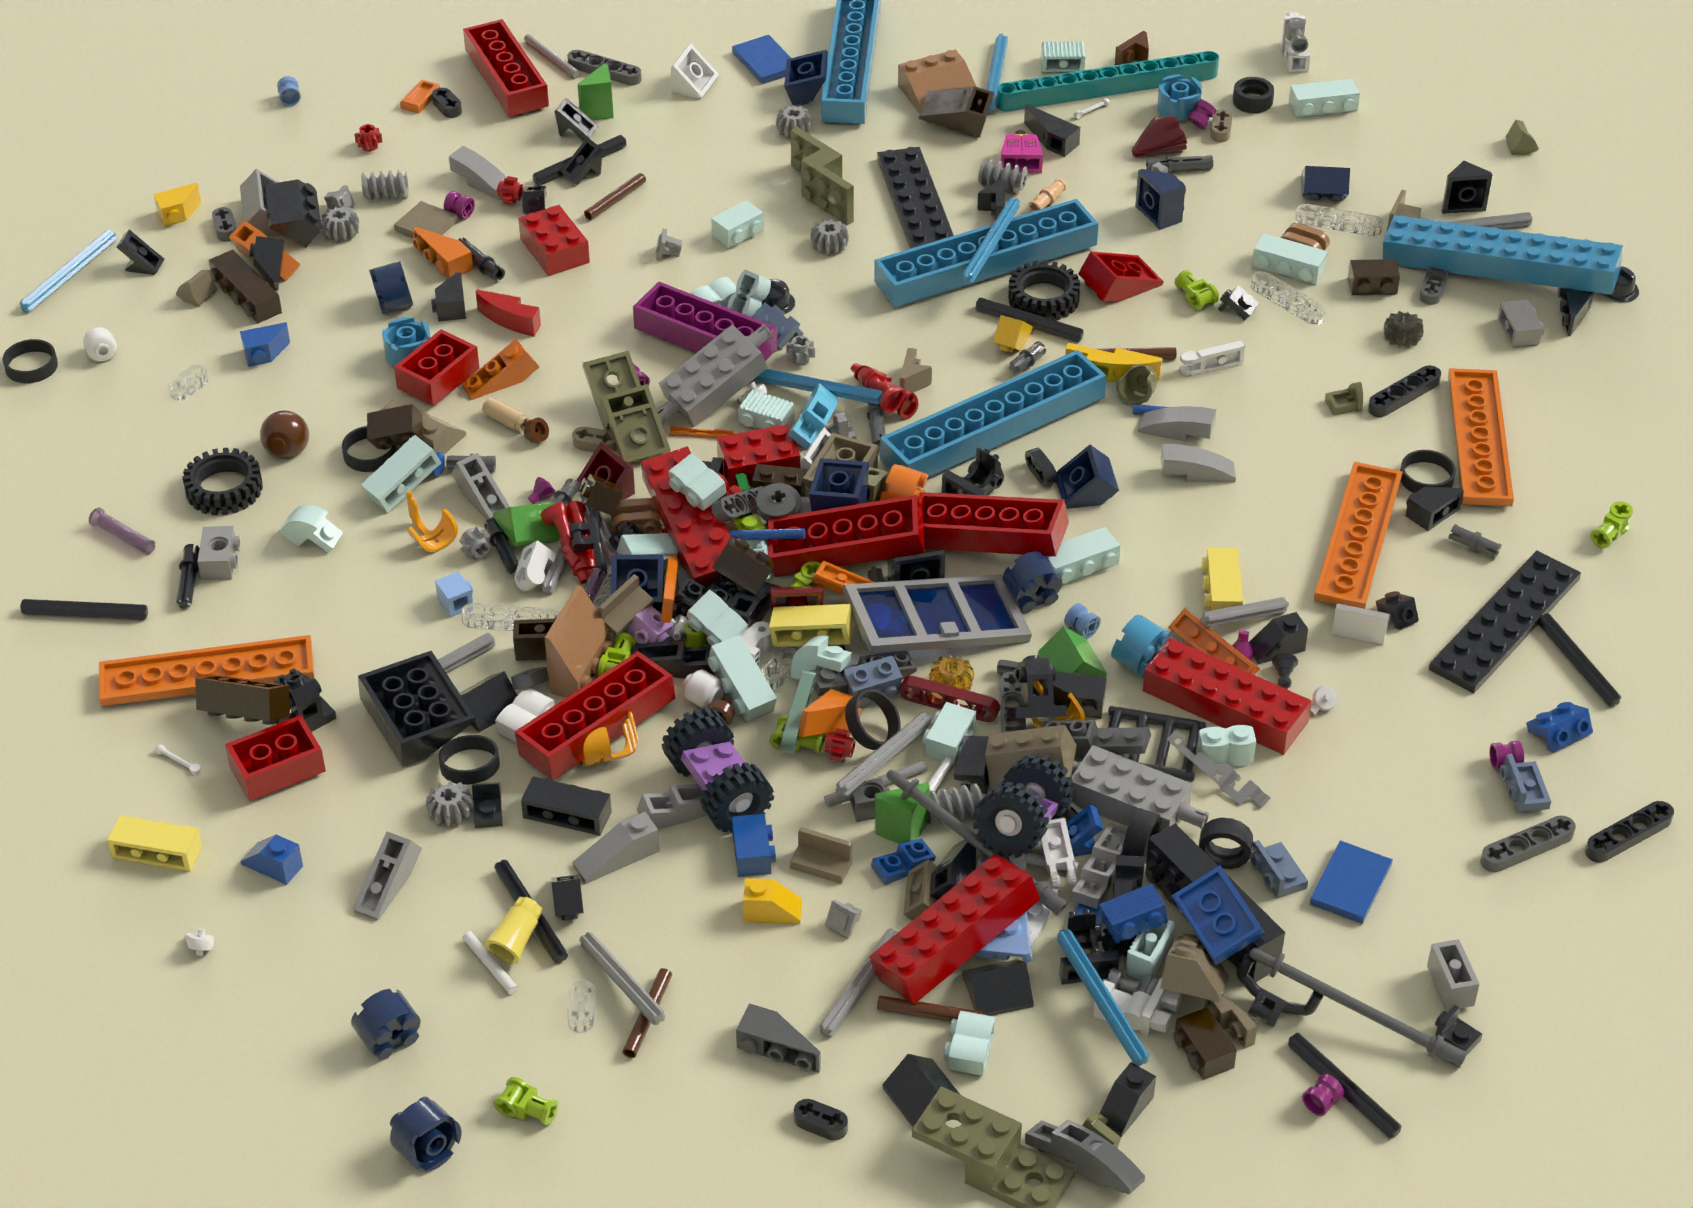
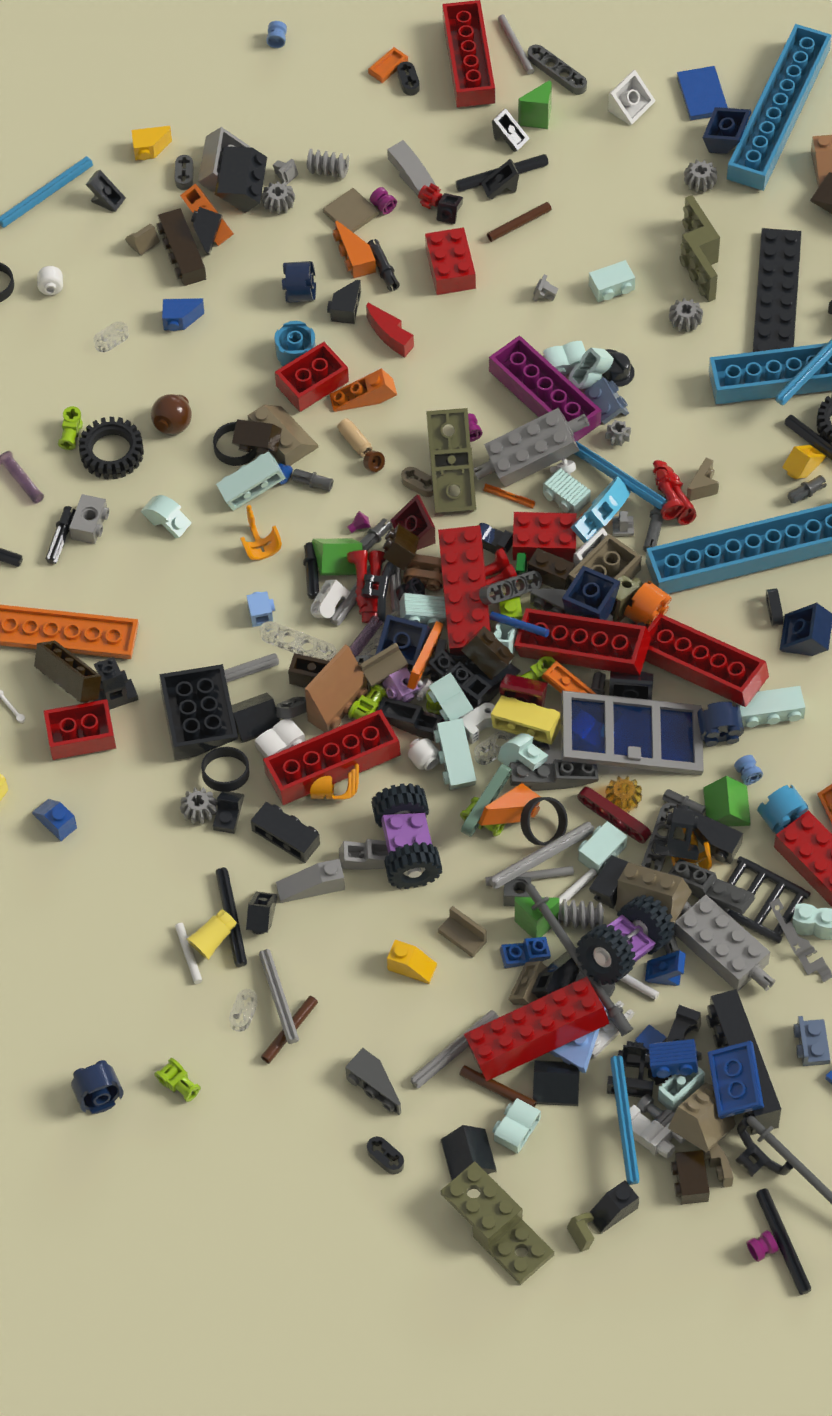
camera: 20 degrees right, 15 degrees up
(168, 472) = (71, 426): none -> lime connector
(368, 137) = (329, 105): red gear -> none
(386, 1023) = (96, 987): dark blue brick -> none
(387, 874) = (134, 857): light grey slope -> none
(475, 543) = (290, 563): light grey gear -> none
(479, 486) = (311, 511): light grey slope -> none
(697, 482) = (474, 565): light aqua brick -> none
(724, 709) = (431, 778): reddish brown tile -> none
(752, 846) = (413, 907): blue brick -> none
(778, 501) = (539, 585): dark grey piece -> none
(839, 745) = (511, 835): red gear -> none
(842, 917) = (461, 990): light grey brick -> none
(877, 674) = (558, 783): sand blue bracket -> none
(984, 471) = (699, 611): black tile -> none
(1058, 852) = (643, 981): white hinge -> none
(1094, 1155) = (568, 1244): dark grey slope -> none
(1099, 870) = (682, 993): light grey slope -> none
(1141, 827) = (713, 982): black tyre -> none
(1229, 829) = (776, 1011): black tyre -> none

